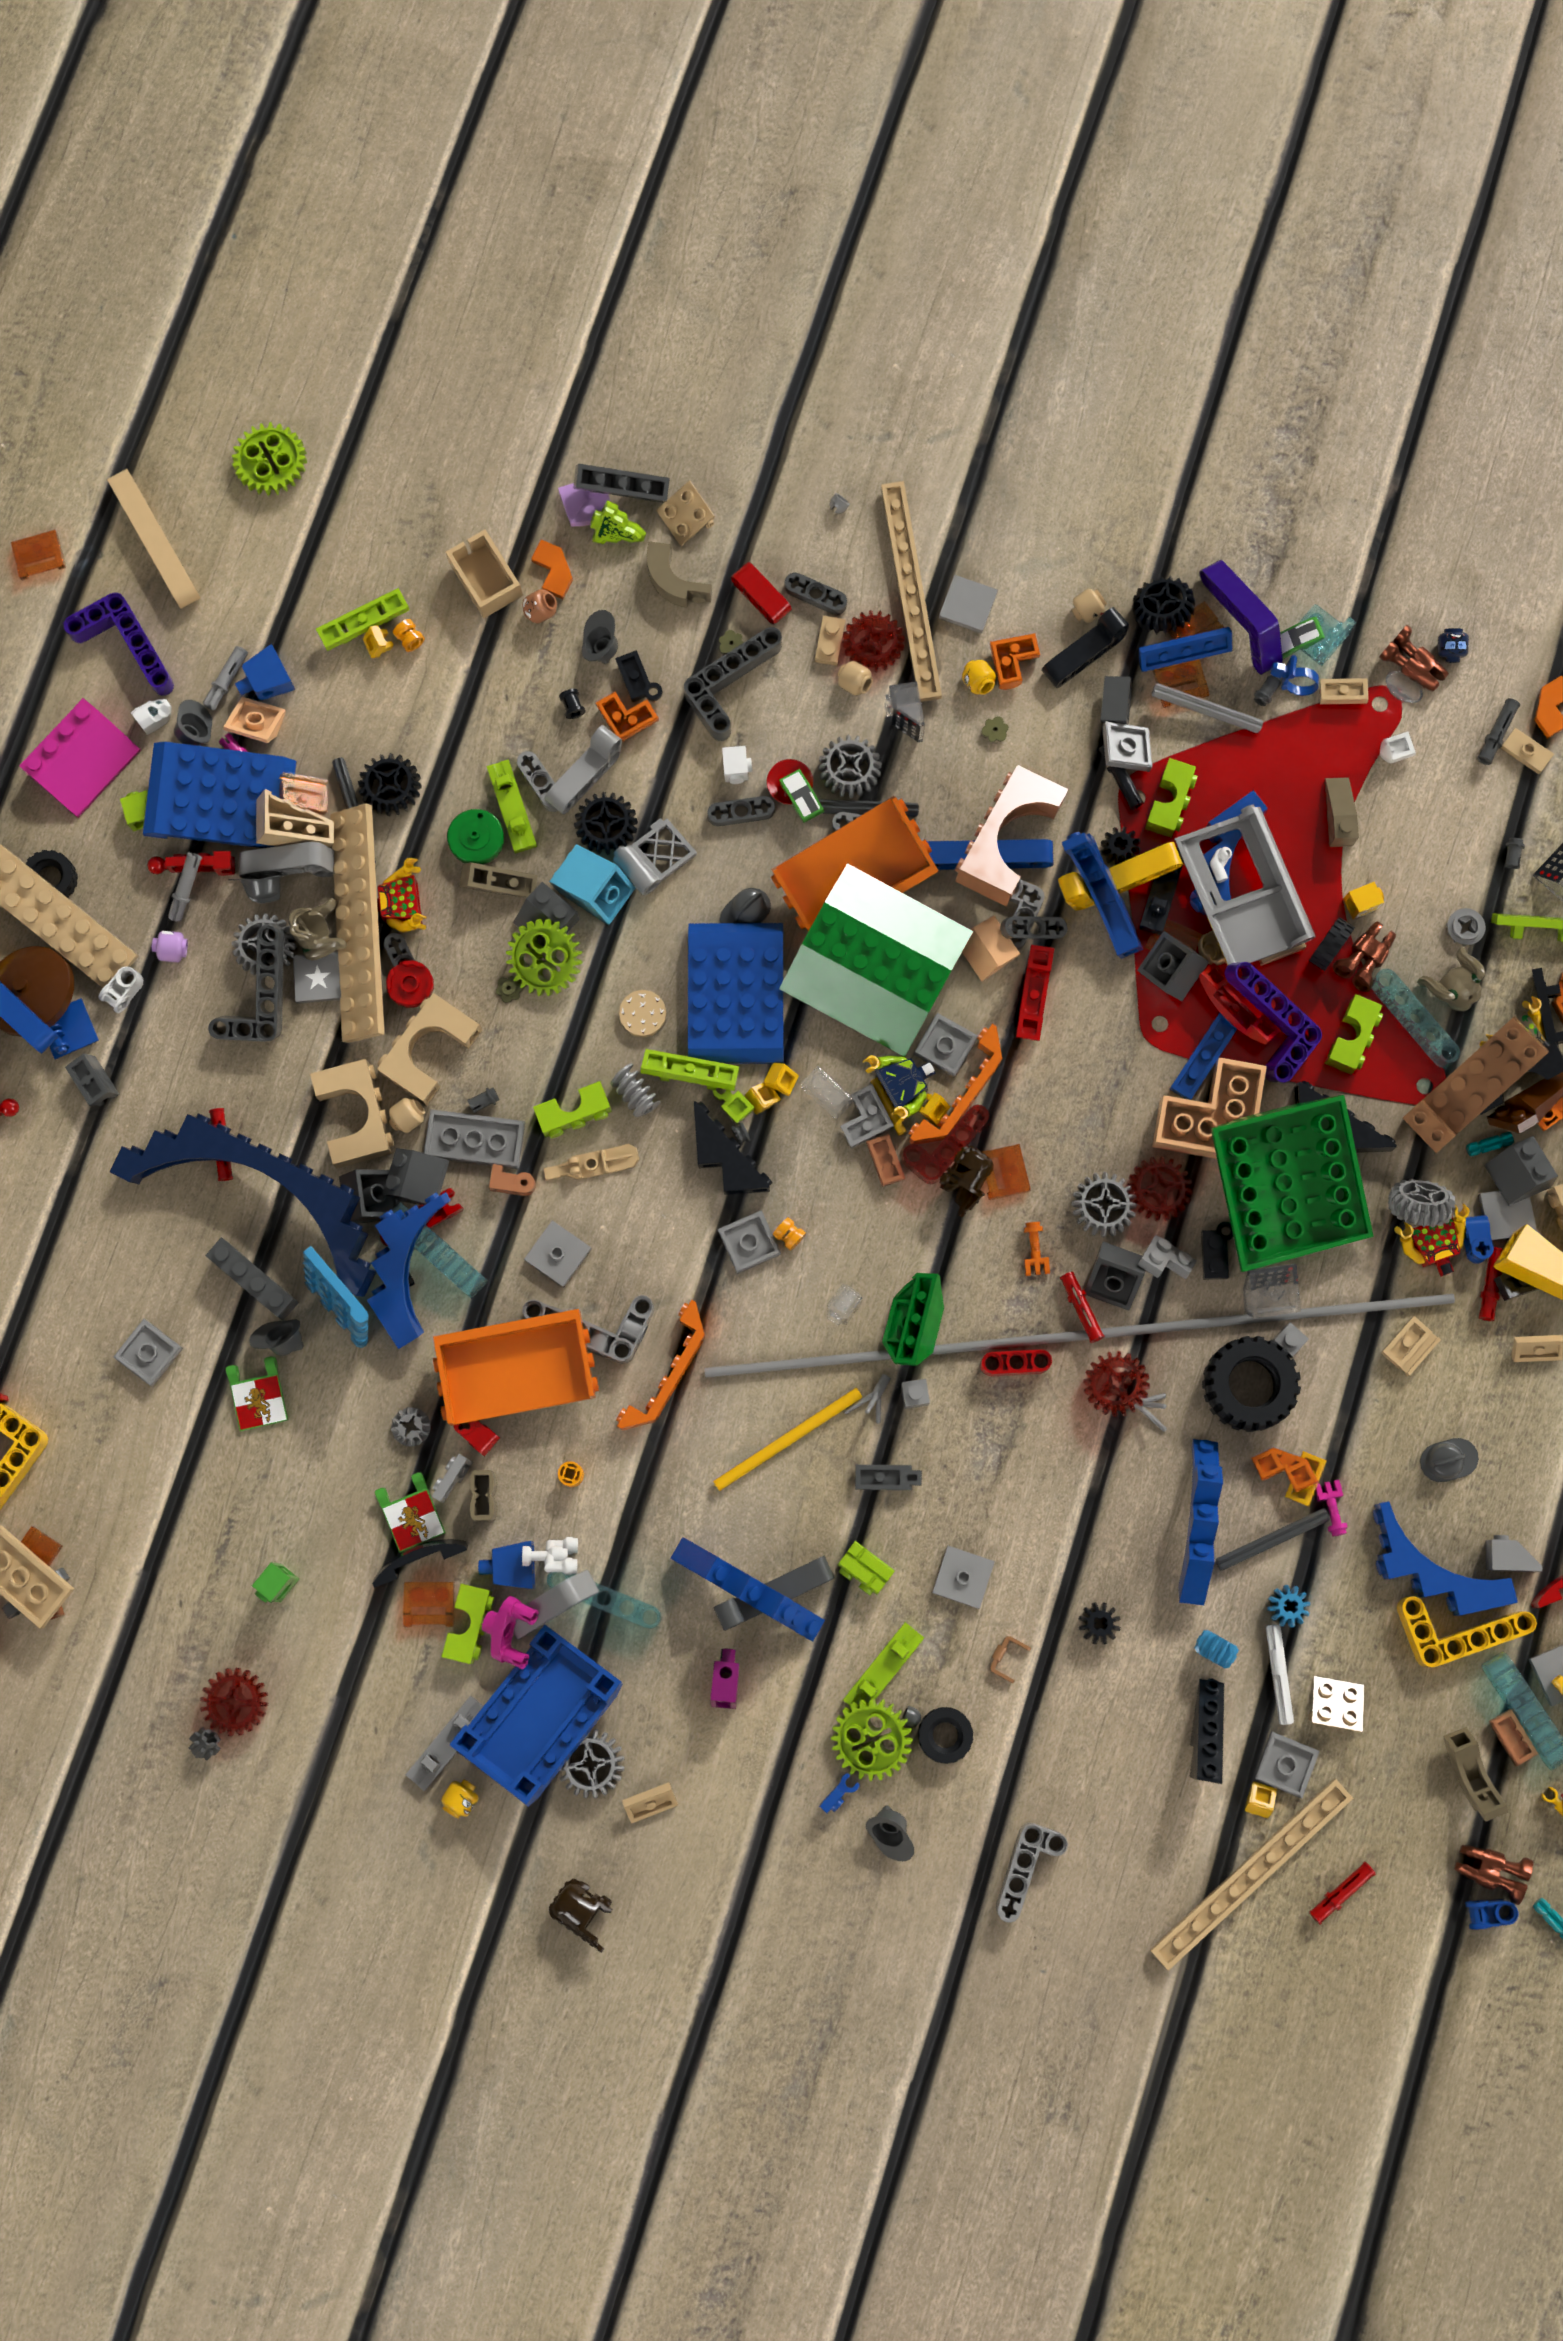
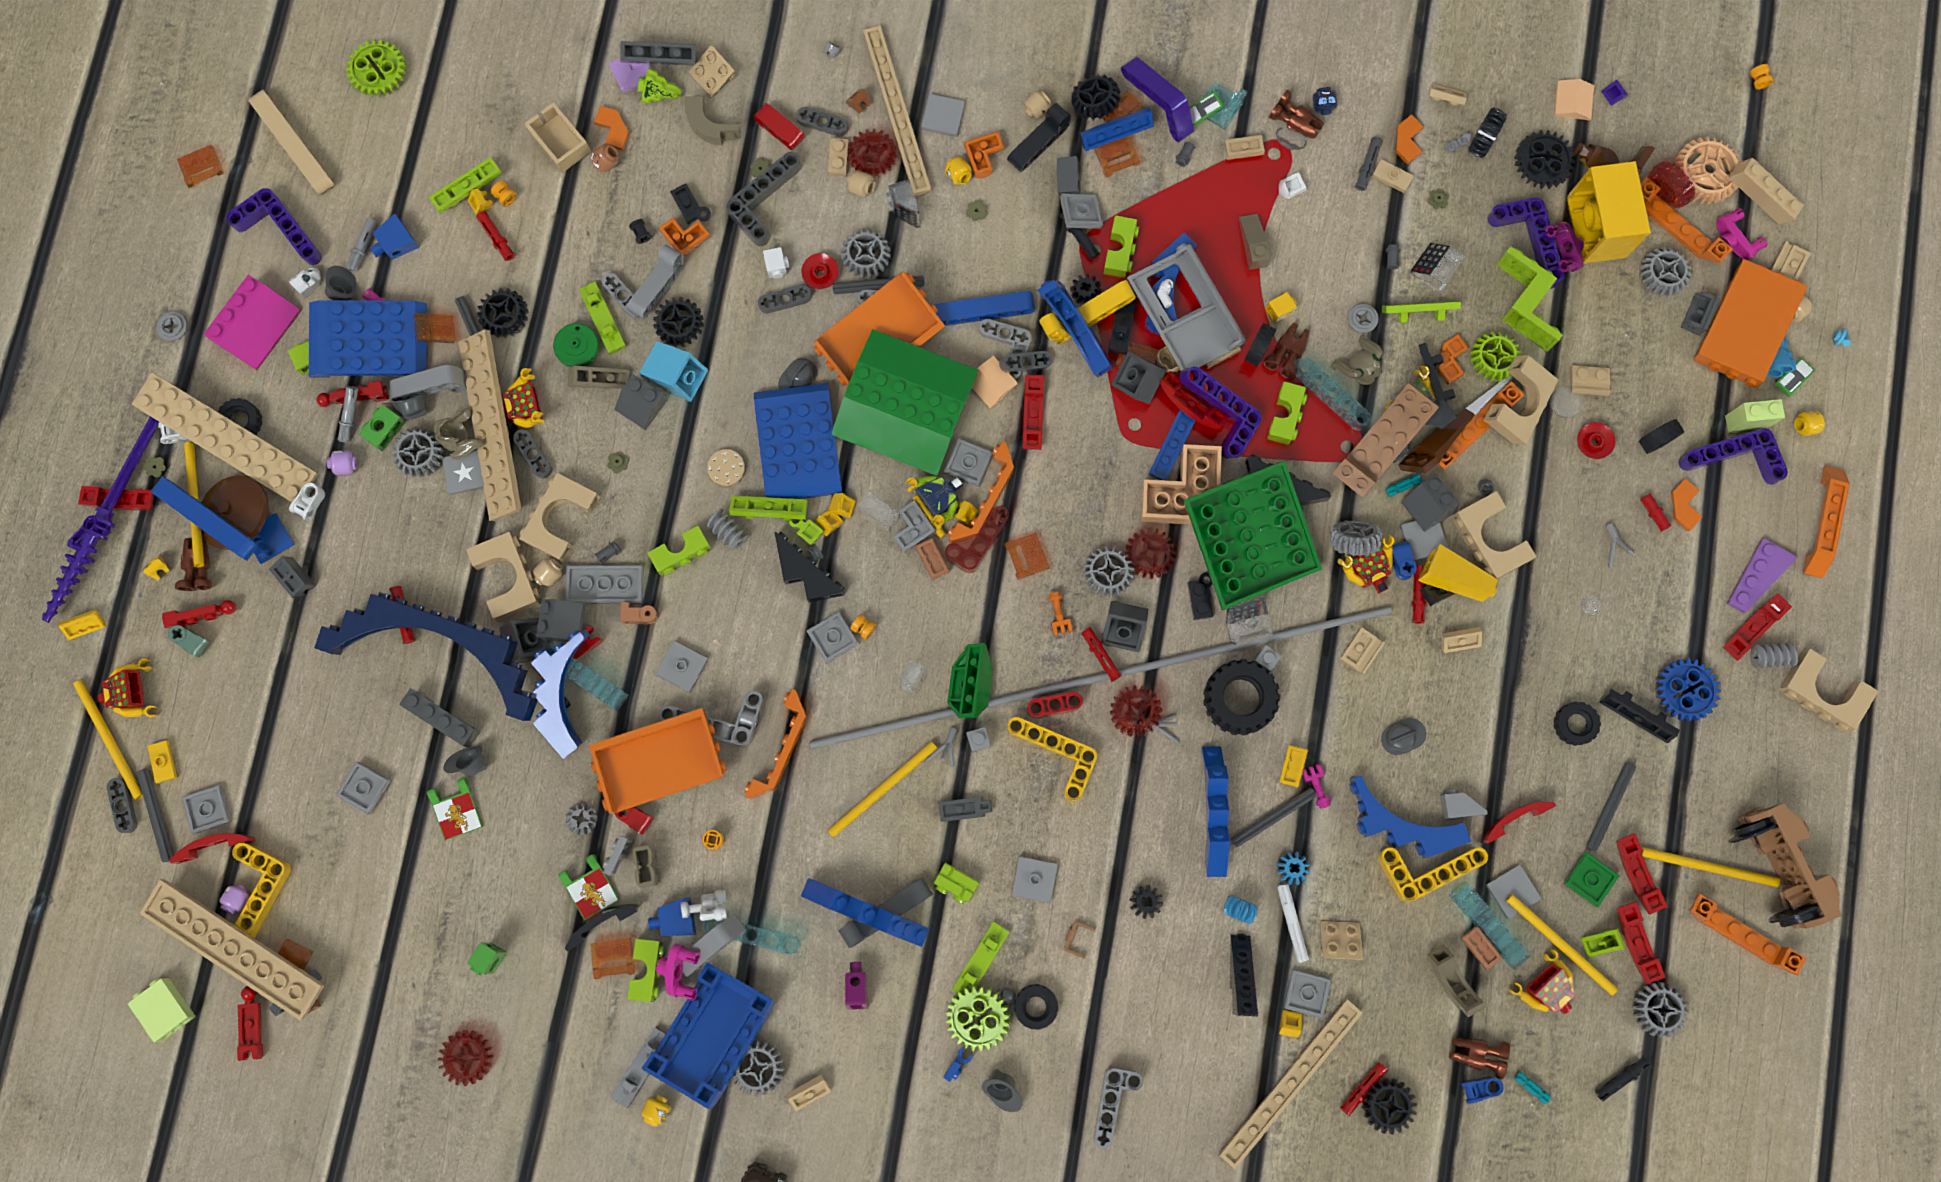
camera: 10 degrees left, 0 degrees up
(204, 1743) = (445, 1094): dark grey gear -> none
(223, 921) = (383, 437): none -> bright green brick
(255, 720) = (389, 275): light nougat slope -> none
(263, 993) = (420, 490): dark grey beam -> none
(286, 824) = (422, 353): tan wedge -> none
(336, 1297) = (507, 724): dark azure hinge -> none
(395, 694) = (498, 240): none -> red pin
(409, 983) = (537, 468): red tile -> none
(532, 974) = (649, 418): lime gear -> none
(599, 637) = (655, 176): dark grey piece -> none
(606, 1161) = (711, 588): tan piece -> none
(637, 864) = (709, 353): light grey piece -> none
(802, 795) = (830, 280): slope -> none
(862, 570) = (856, 99): none -> dark orange tile
(968, 1174) = (998, 560): dark brown helmet -> none
(1013, 1419) = (1059, 749): none -> yellow beam
(1022, 796) = (1004, 259): arch -> none
(1162, 1254) = (1159, 604): light grey plate -> none
(1207, 708) = (1140, 173): light grey axle -> none
(1276, 1461) = (1269, 755): orange tile -> none
(1290, 671) = (1201, 136): blue piece -> none
(1392, 1927) = (1388, 1114): none -> black gear

